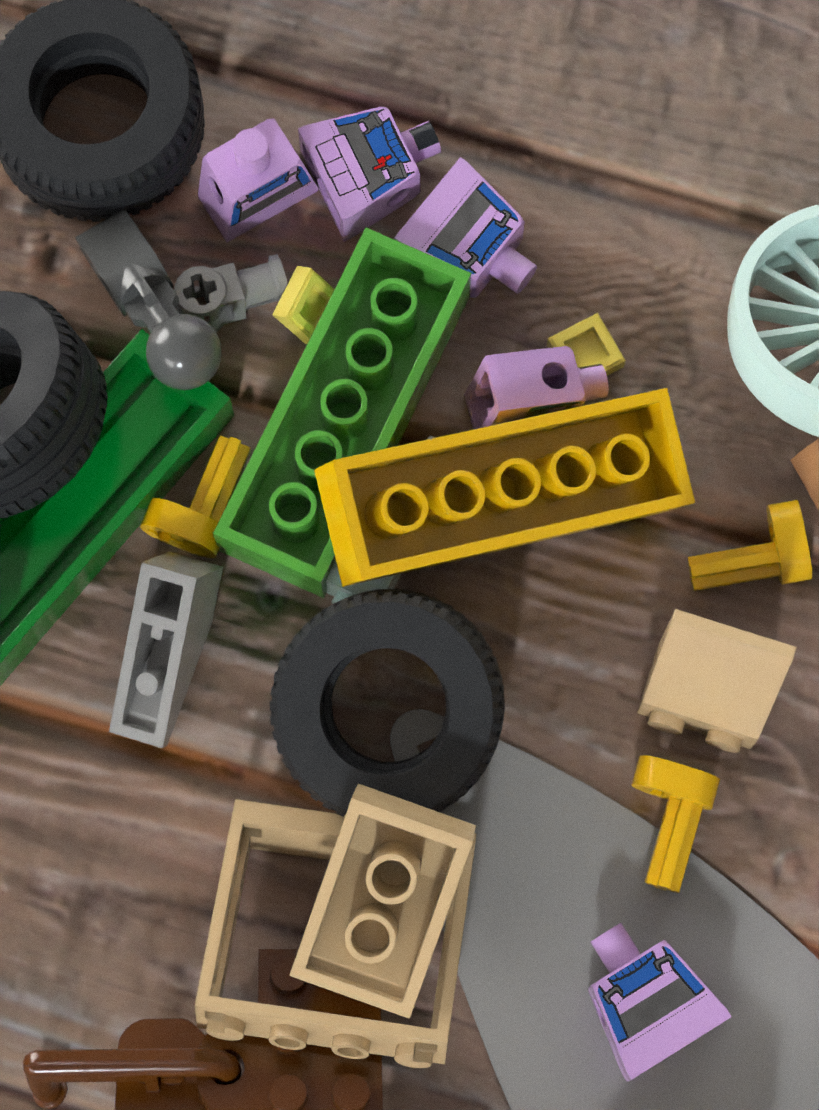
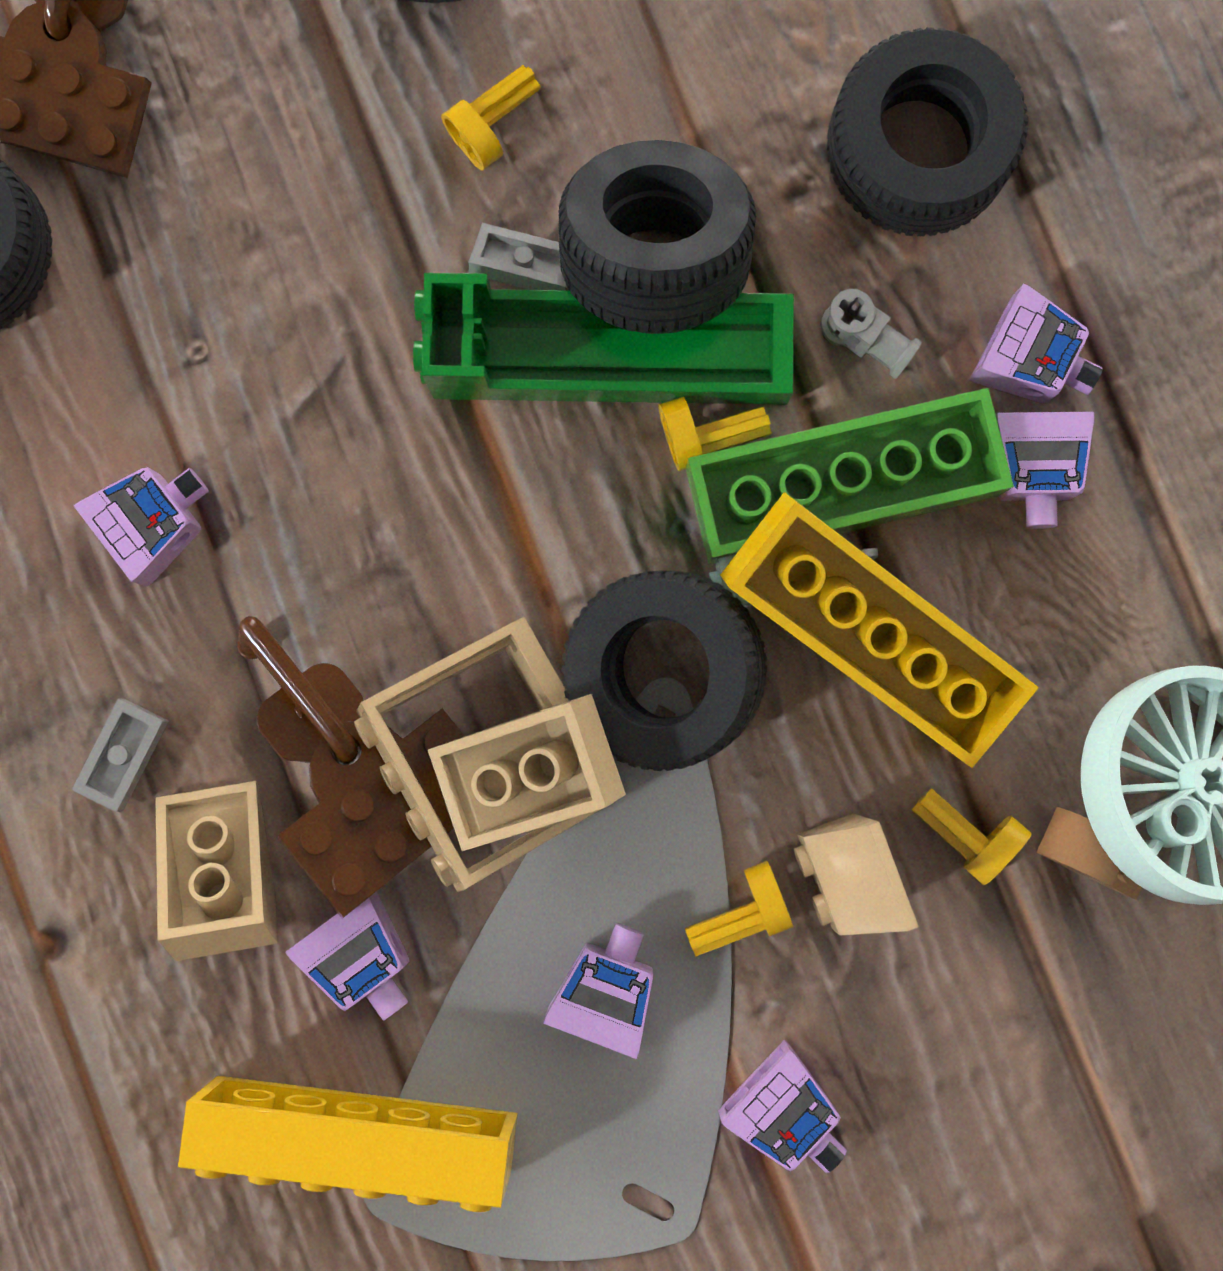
camera: 55 degrees right, 10 degrees up
(163, 645) = (593, 484): light grey slope -> none
(181, 347) = (799, 331): dark grey beam -> none
(255, 176) = (962, 282): lavender torso -> none
(303, 302) = (901, 387): light yellow tile -> none
(531, 385) = (964, 592): lavender torso -> none
(590, 344) = (1022, 606): light yellow tile -> none

